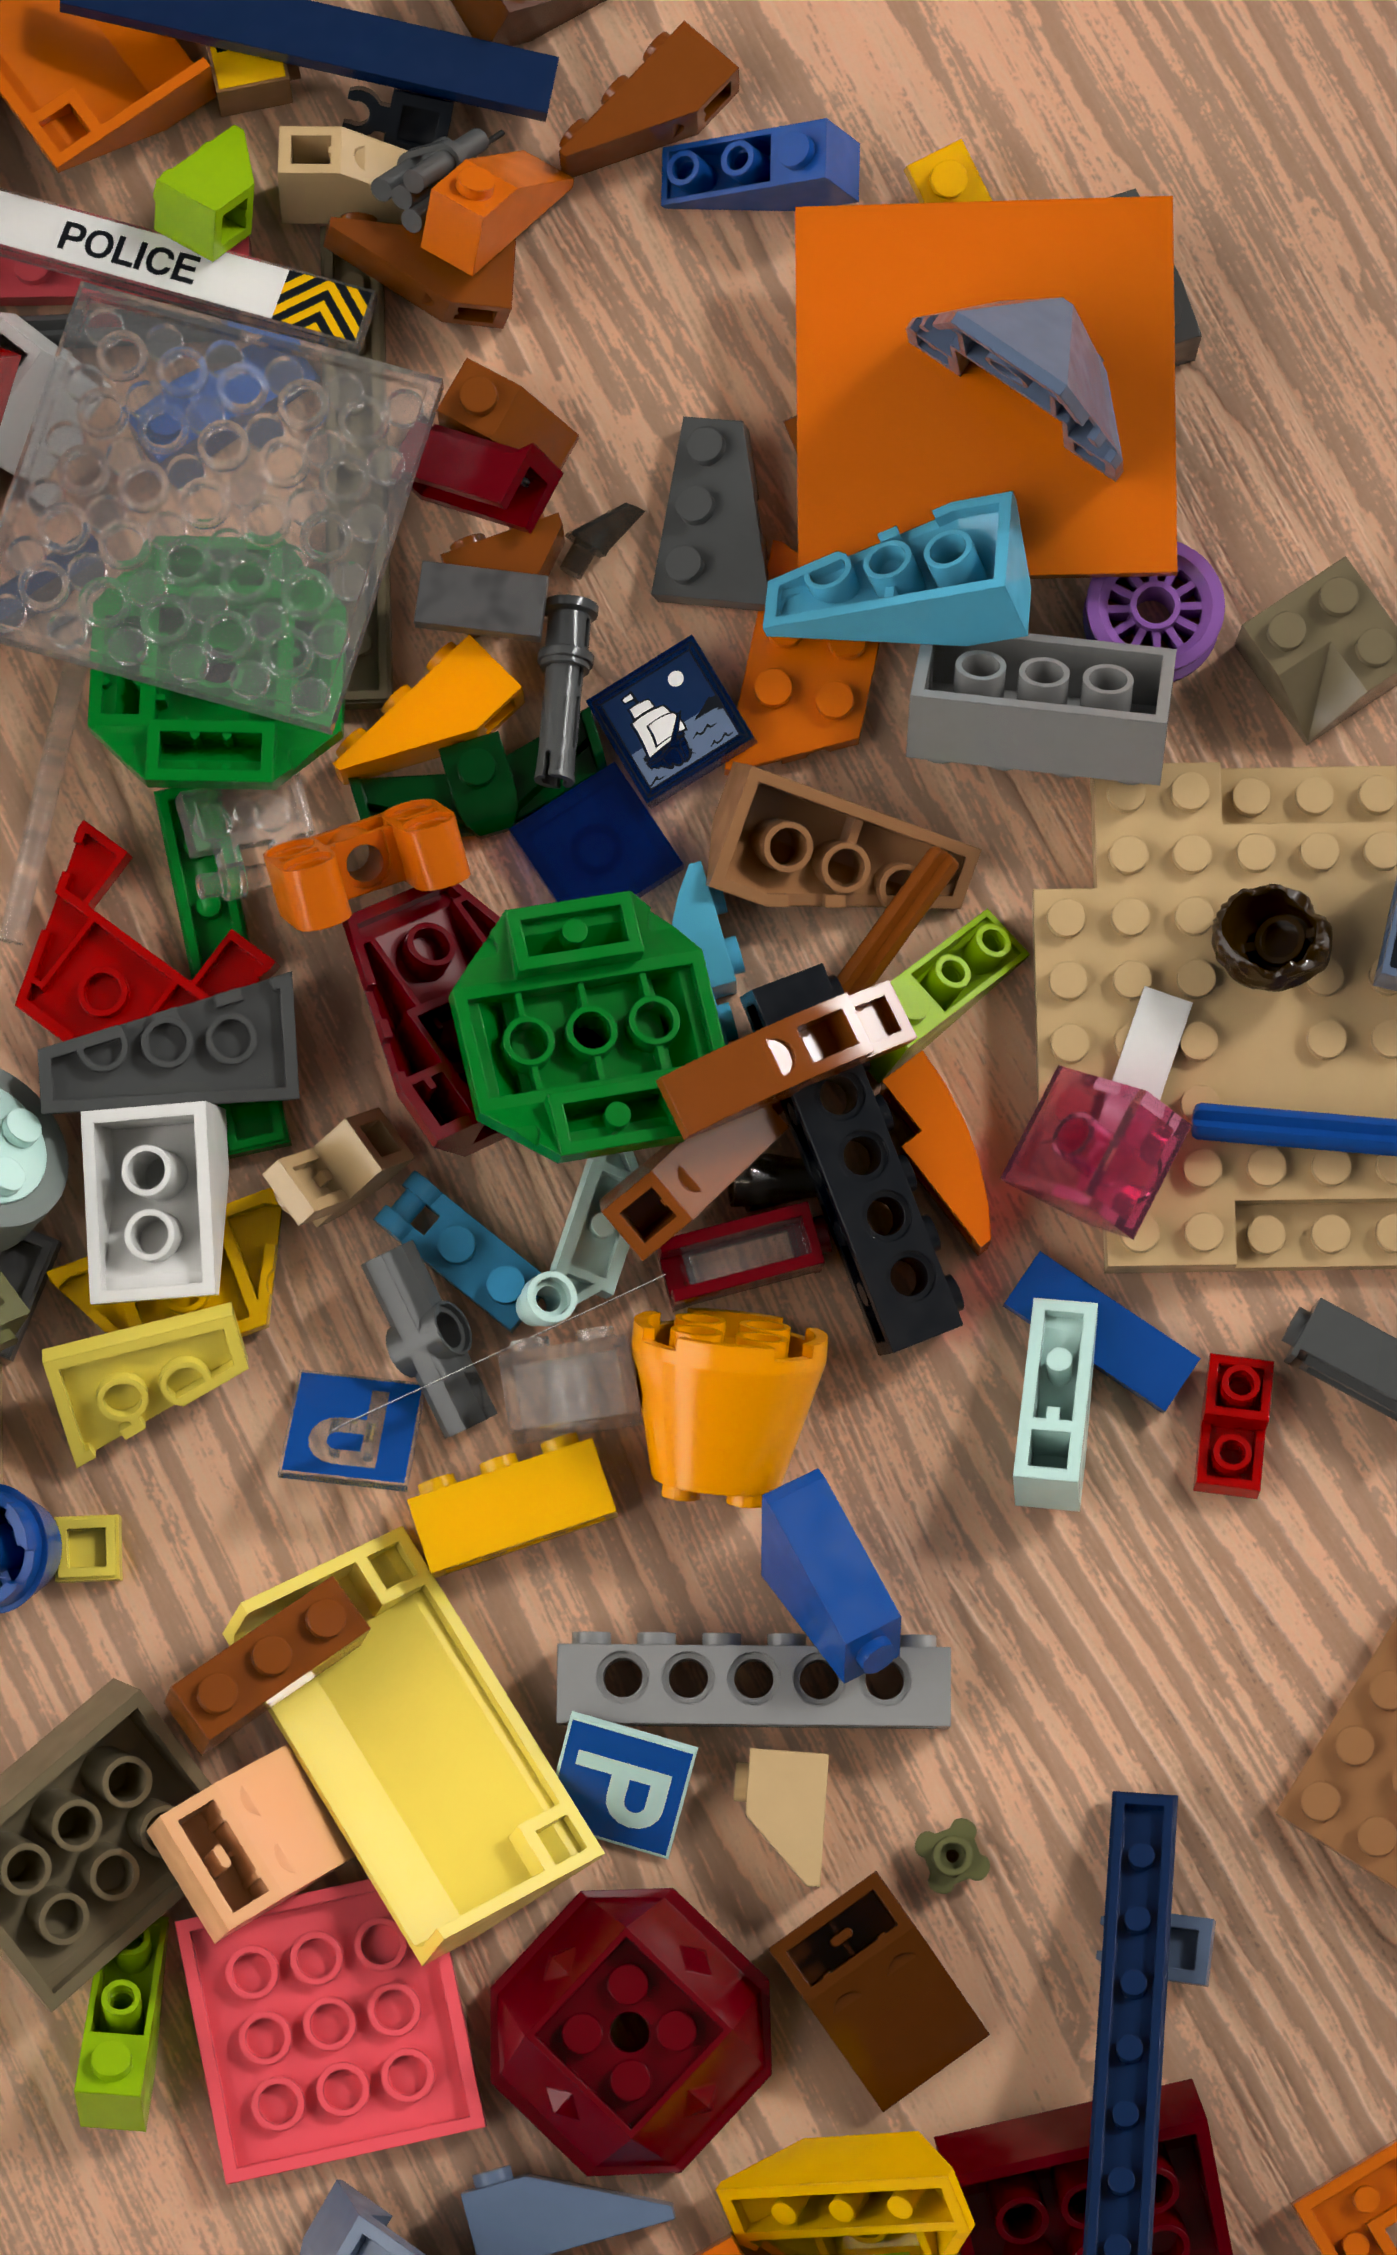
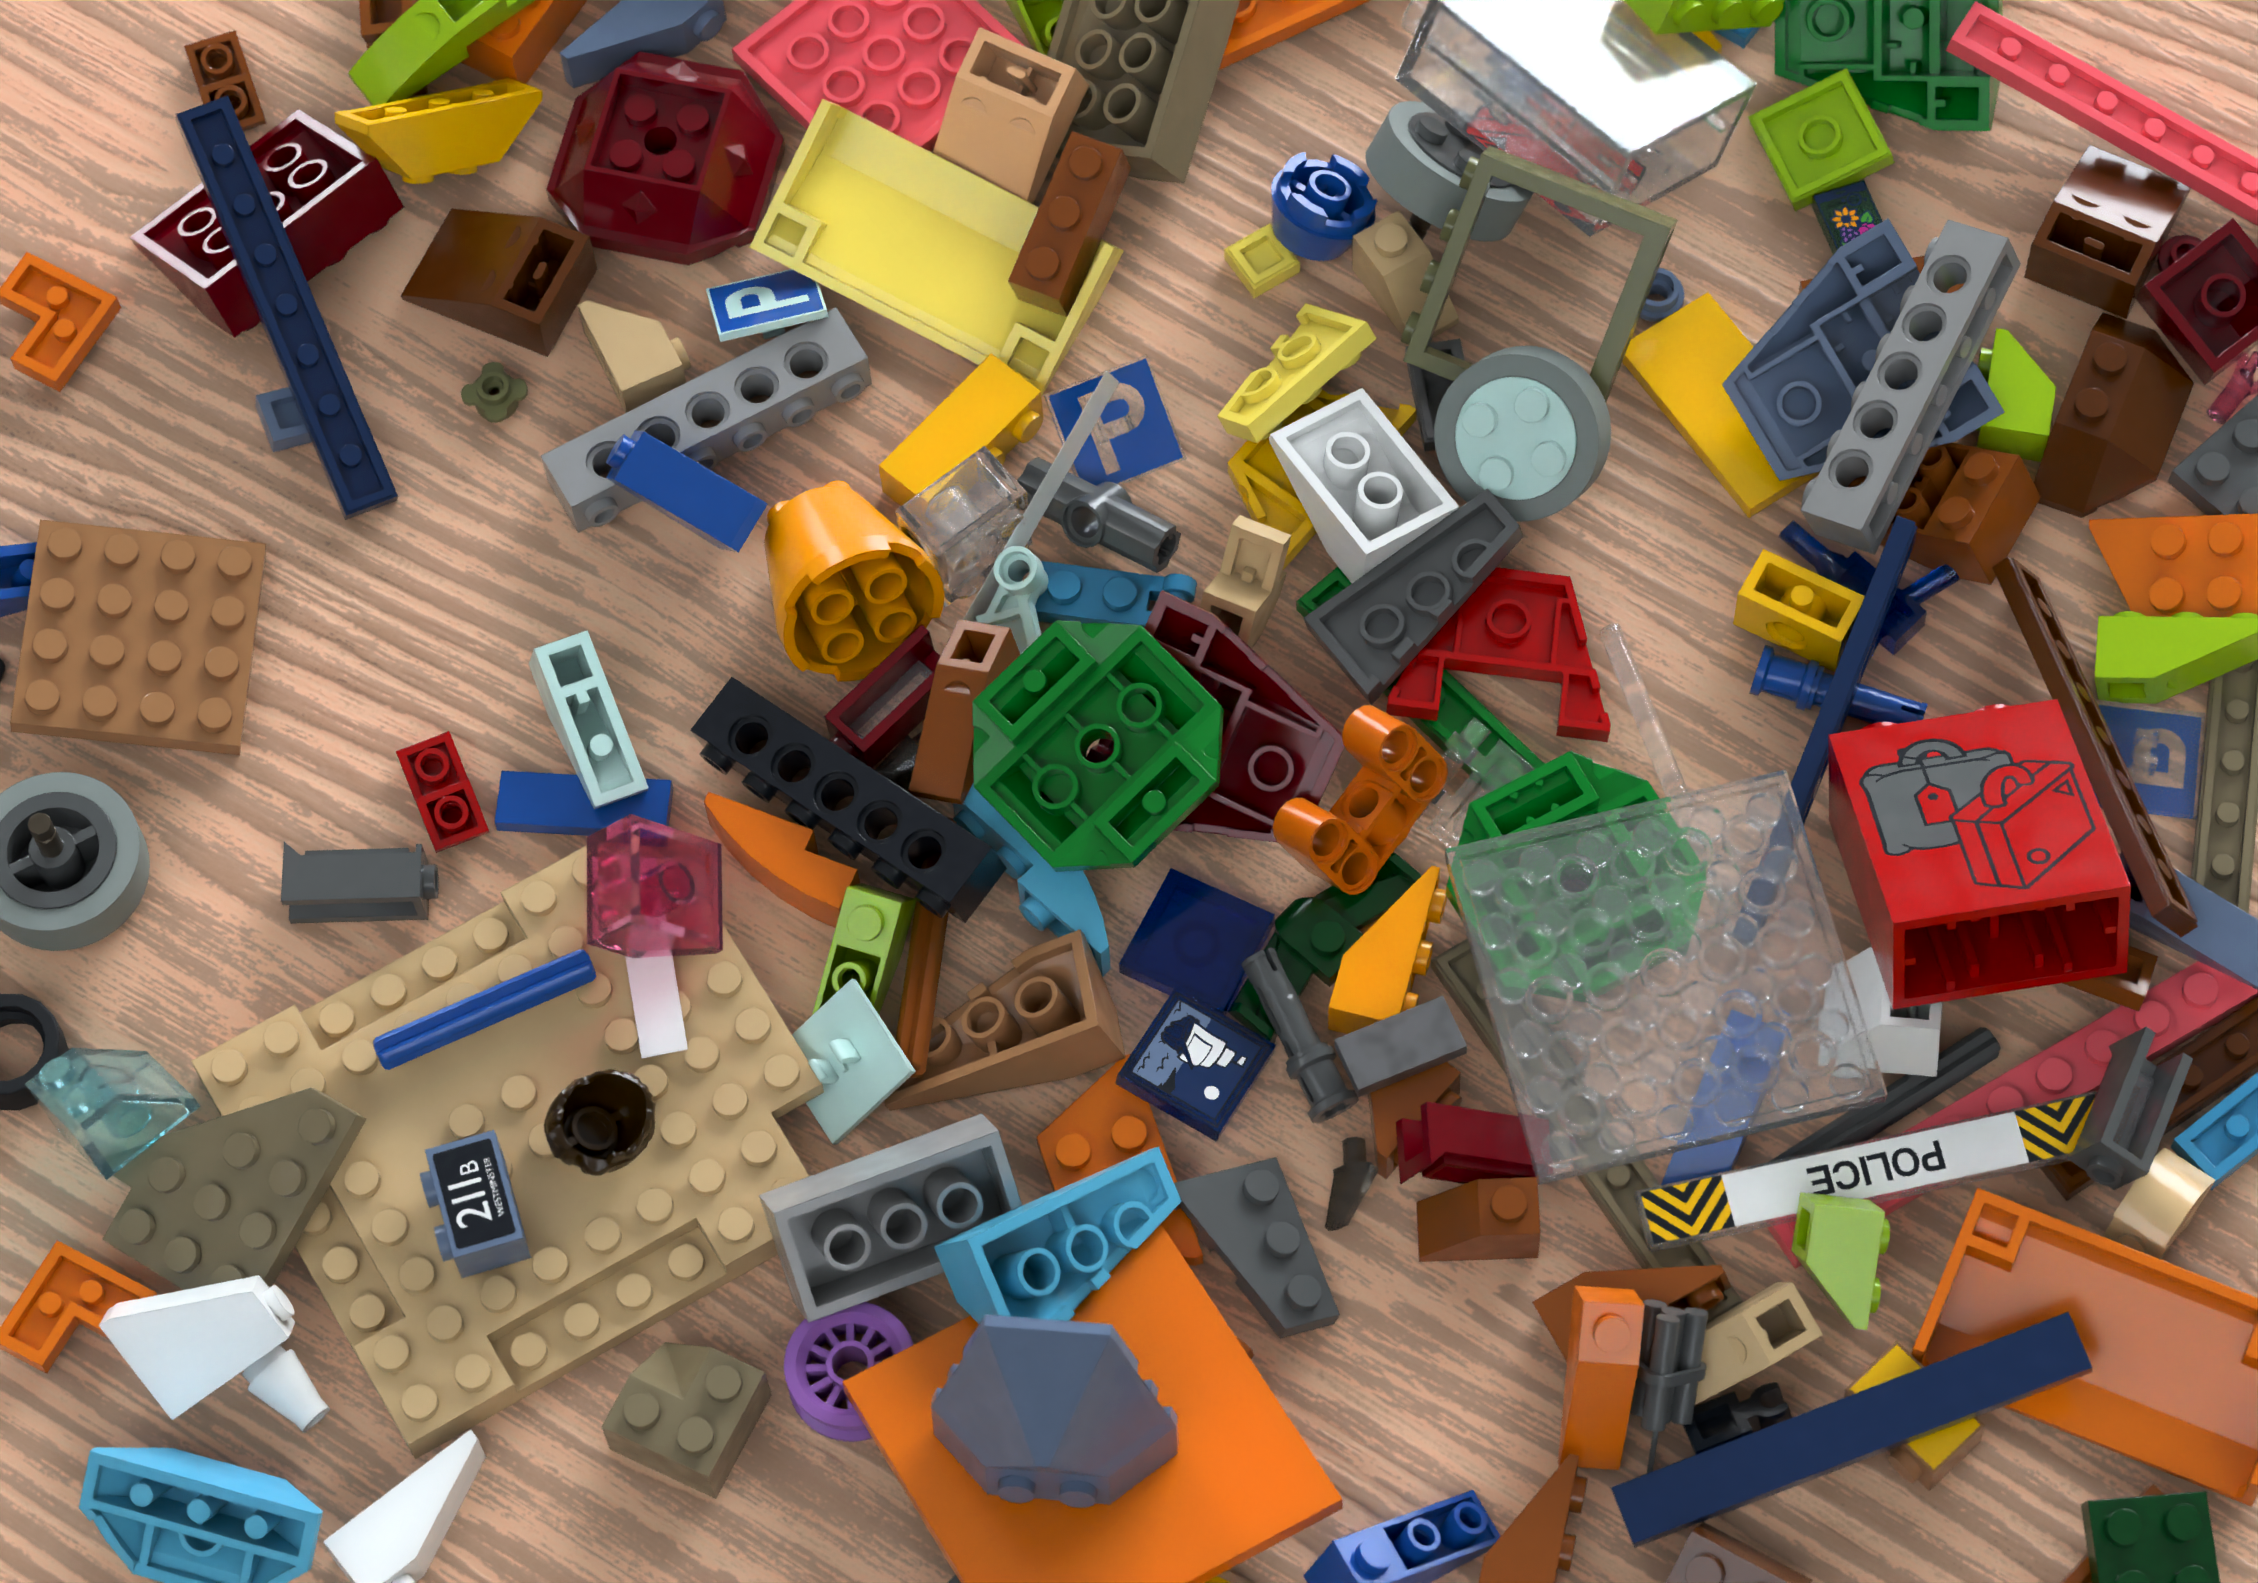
camera: 150 degrees right, 15 degrees down
(785, 1058) = (924, 796): dark orange slope -> none
(992, 902) = (852, 1060): none -> light aqua piece

